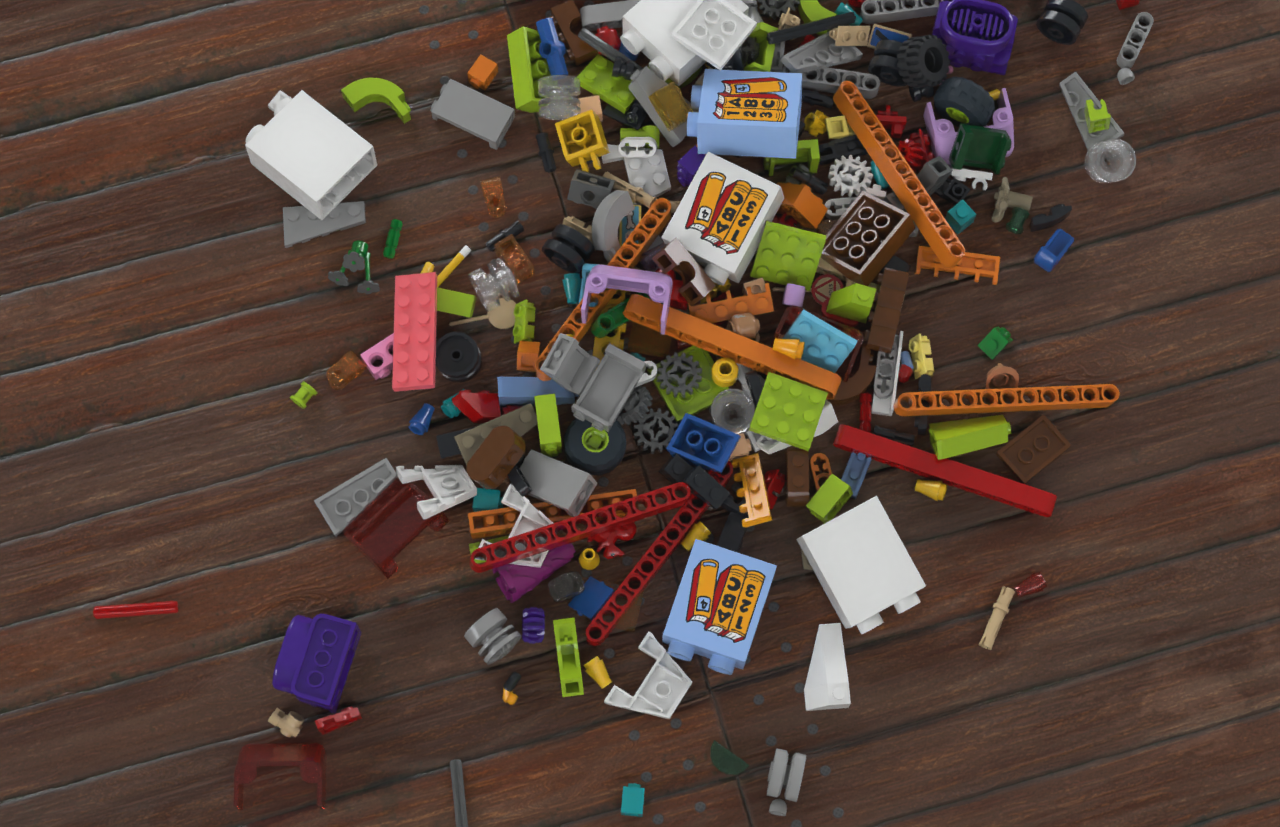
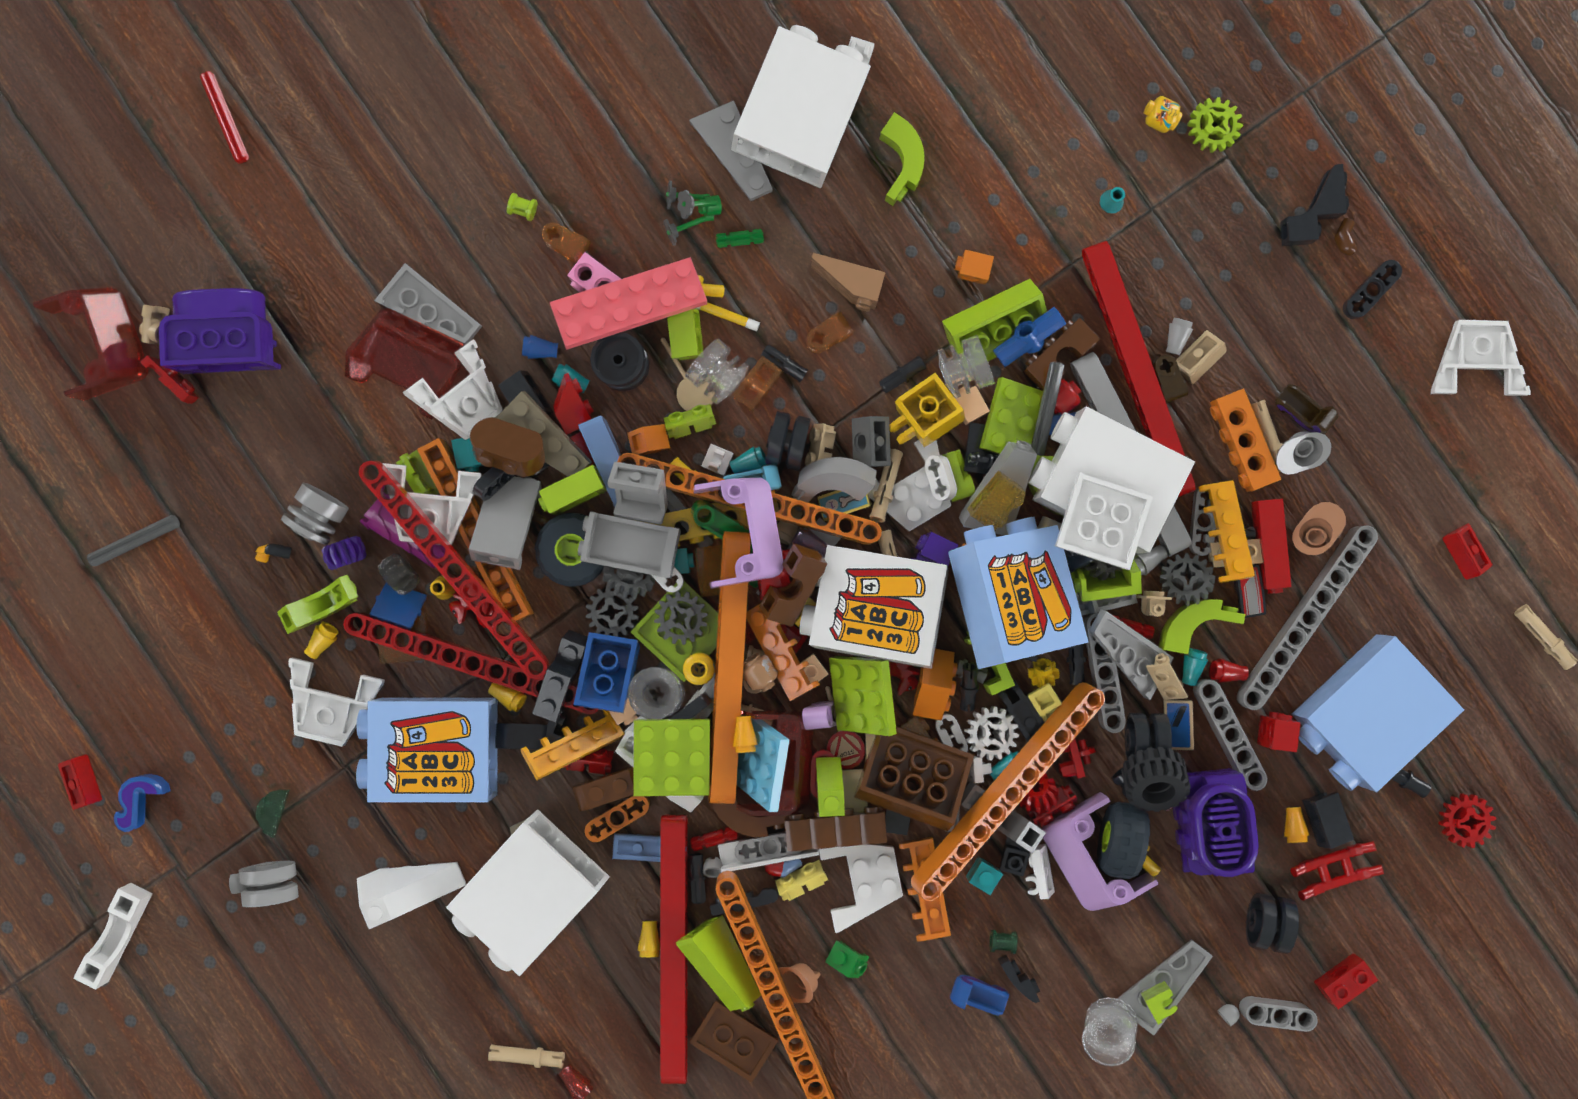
camera: 80 degrees right, 15 degrees up
(460, 163) = (855, 282): none -> medium nougat slope
(473, 112) = (920, 273): light grey panel -> none
(560, 311) = (717, 459): none -> white tile
(623, 68) = (1031, 428): black wheel -> none
(632, 800) = (193, 725): teal brick -> none
(810, 28) = (1156, 631): black axle -> none
(829, 499) = (594, 832): lime hinge -> none
(889, 420) = (712, 867): none -> light grey hinge
(937, 303) = (873, 881): none -> white wing
(980, 148) = (1074, 875): dark green panel -> none
(1007, 198) = (1026, 926): dark tan piece -> none

